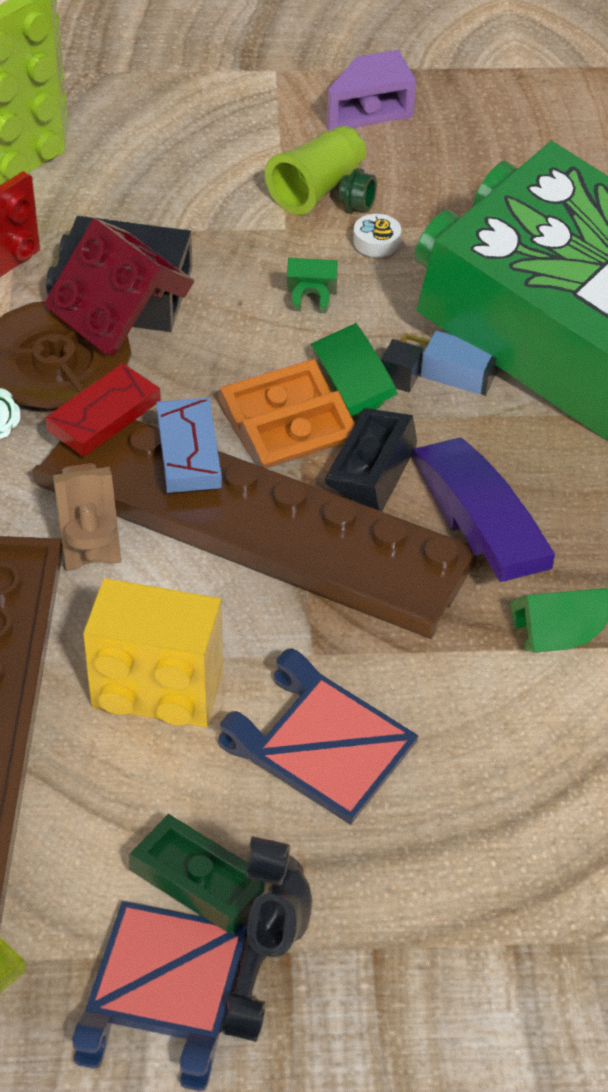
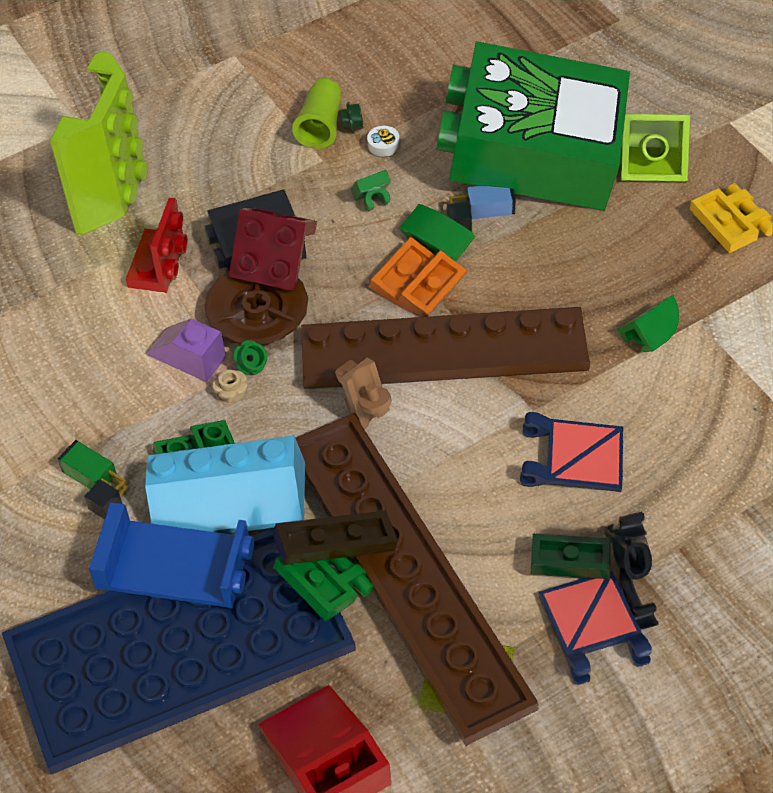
camera: 25 degrees left, 5 degrees up
(103, 409) = (319, 325): red tile -> none
(154, 652) = (465, 450): yellow brick -> none
(188, 445) = (385, 322): medium blue tile -> none
(372, 91) = (314, 45): medium lavender slope -> none
(373, 457) = (485, 280): black slope -> none
(484, 509) = (570, 280): dark purple slope -> none

